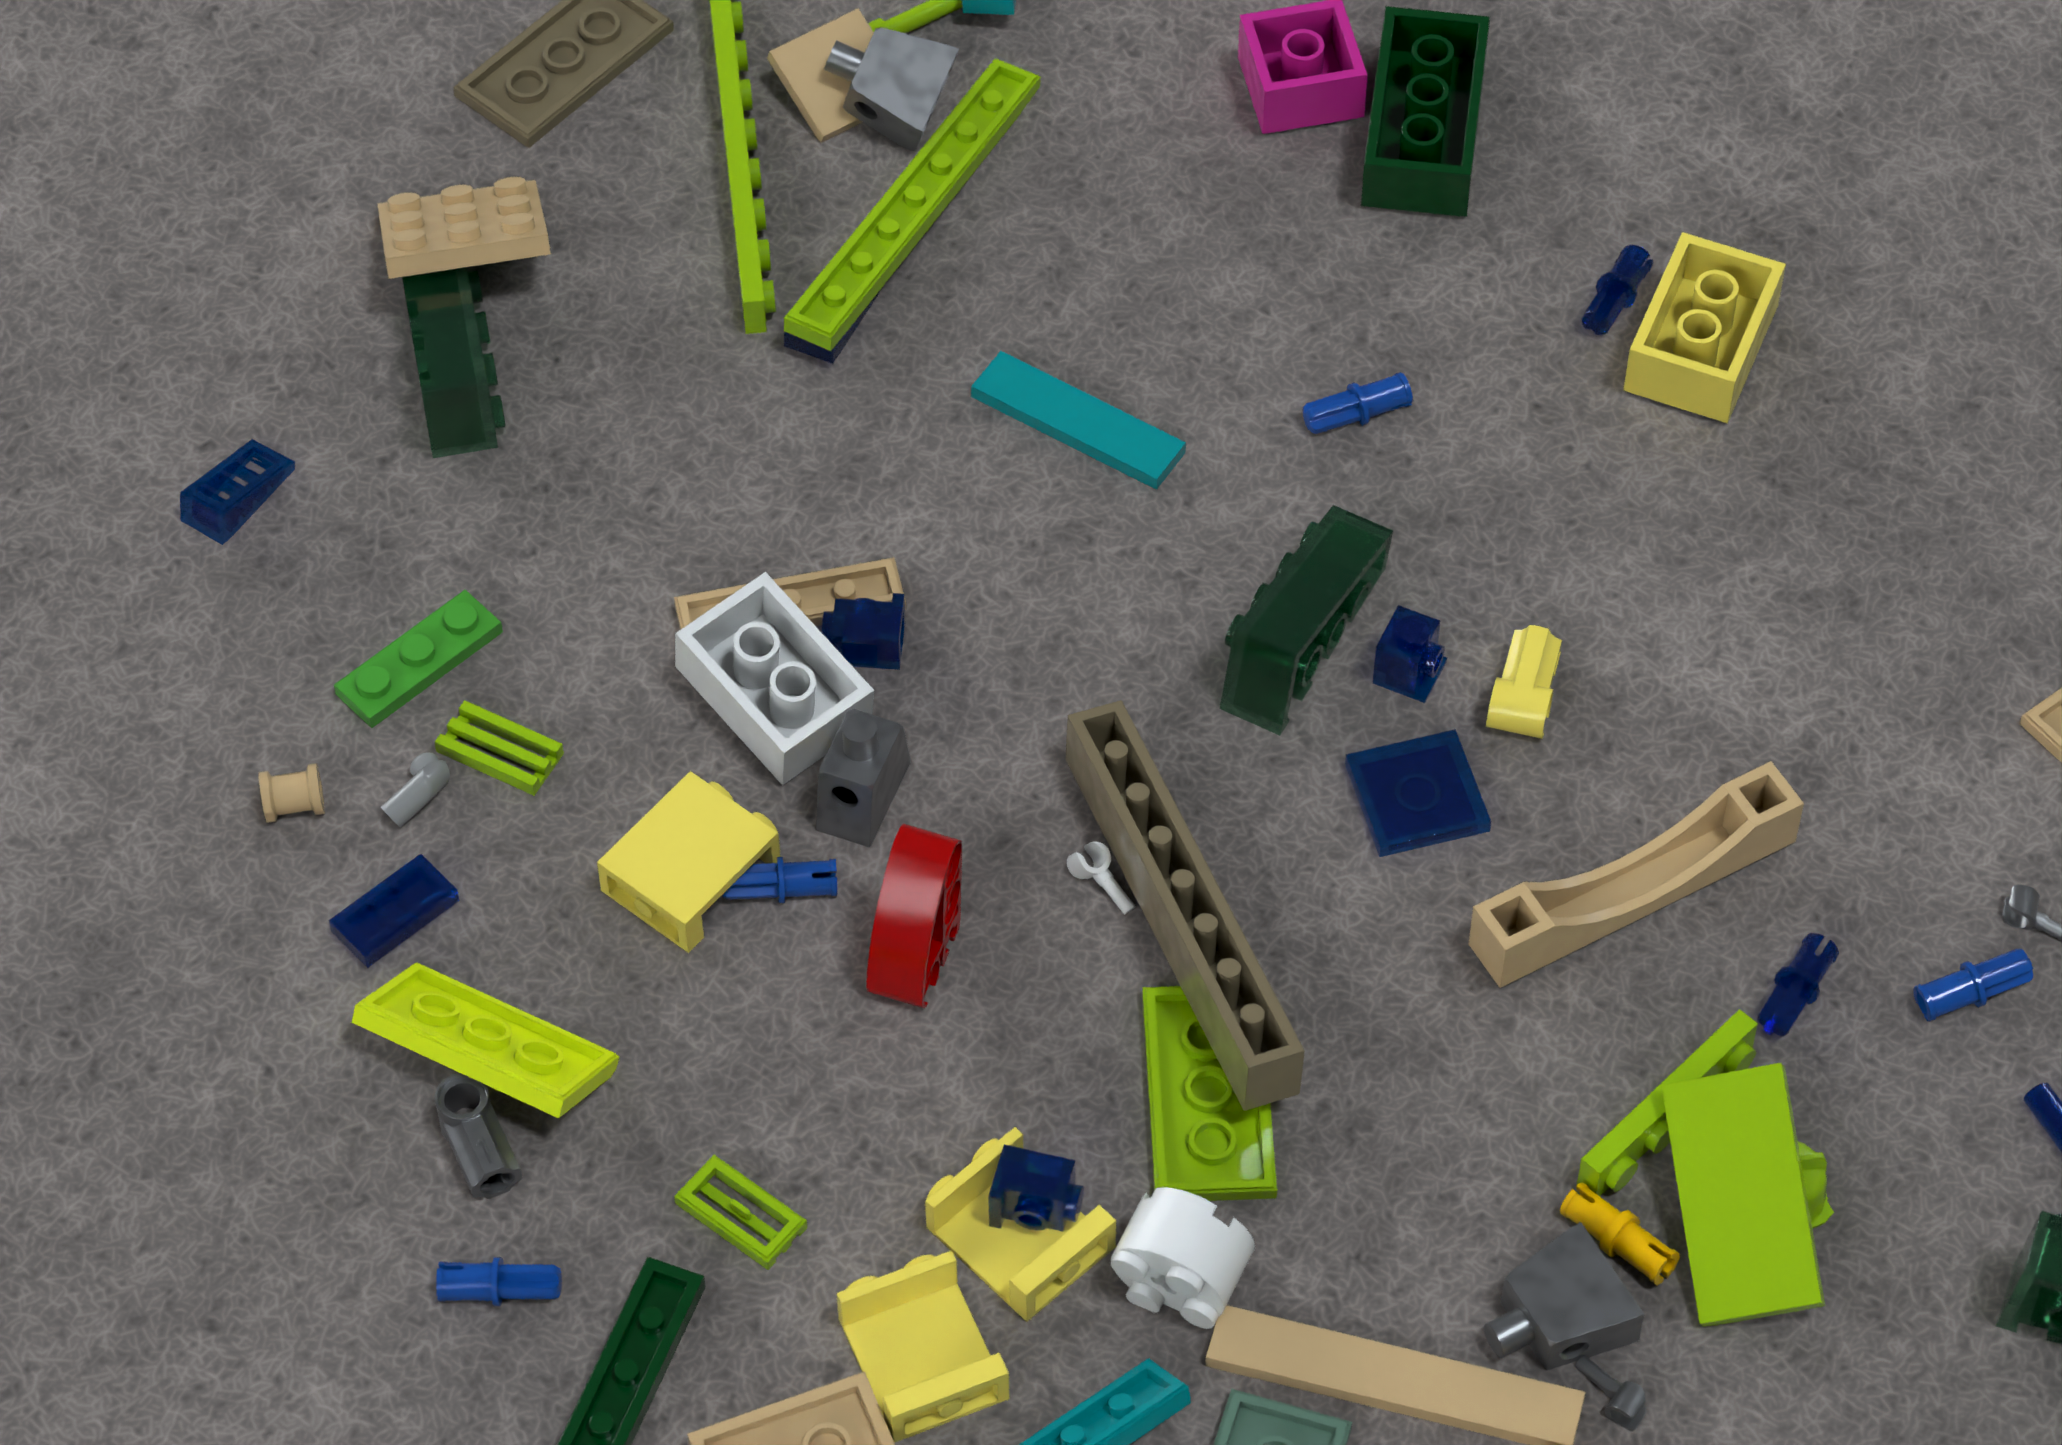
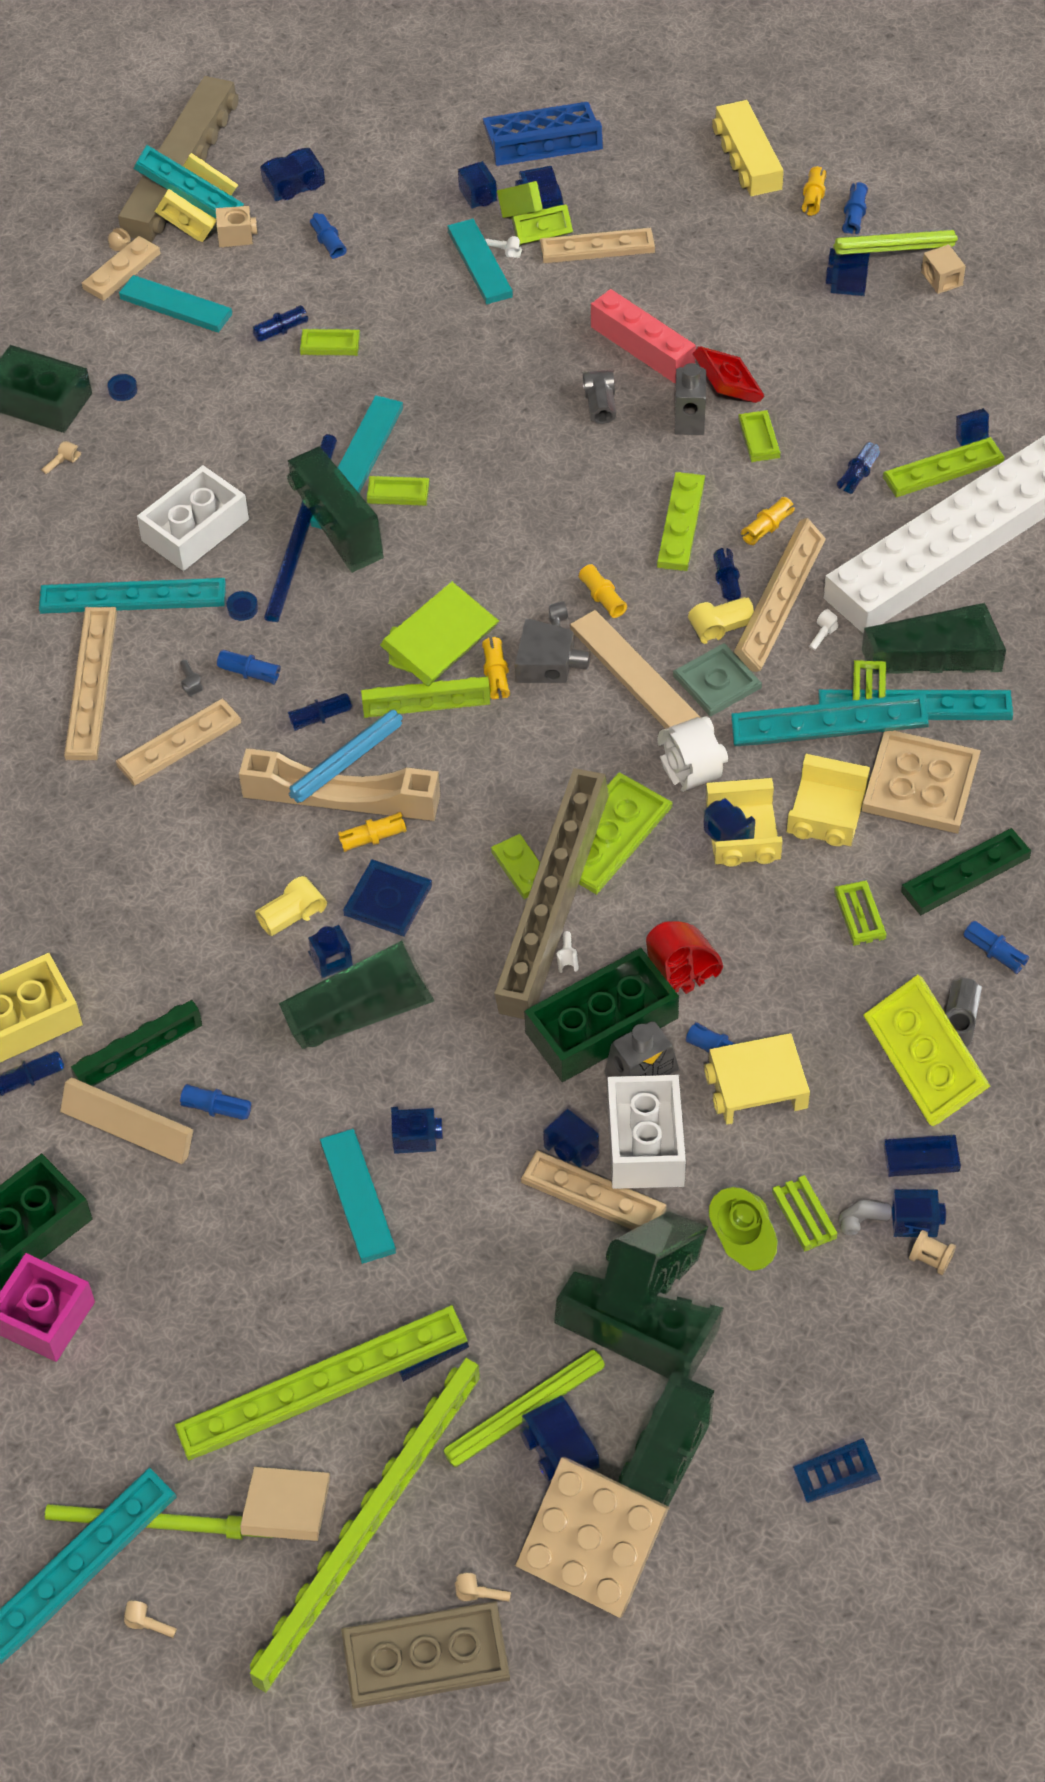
camera: 140 degrees left, 0 degrees up
(345, 822) = (917, 1211): none -> clear blue brick
(418, 658) = (809, 1293): bright green plate -> none
(562, 675) = (744, 1227): none -> lime piece
(567, 132) = (467, 1589): none -> tan hand
(587, 311) = (557, 1434): none -> clear blue brick
(593, 468) = (666, 1339): none -> clear green wedge
(622, 501) = (648, 1264): none -> clear green wedge
(661, 330) = (511, 1416): none -> lime axle
(894, 82) = (264, 1458): flat silver torso -> none
(975, 779) = (584, 1019): none -> dark green brick
(1078, 520) = (415, 1130): none -> clear blue brick
(1294, 959) = (517, 862): none -> lime plate
(1436, 310) = (126, 1120): none -> tan tile
(1518, 413) = (138, 1044): none -> dark green plate
(1534, 857) = (372, 831): none -> yellow pin
(1675, 922) = (345, 756): none -> dark azure axle
(1940, 818) = (178, 741): none -> tan tile

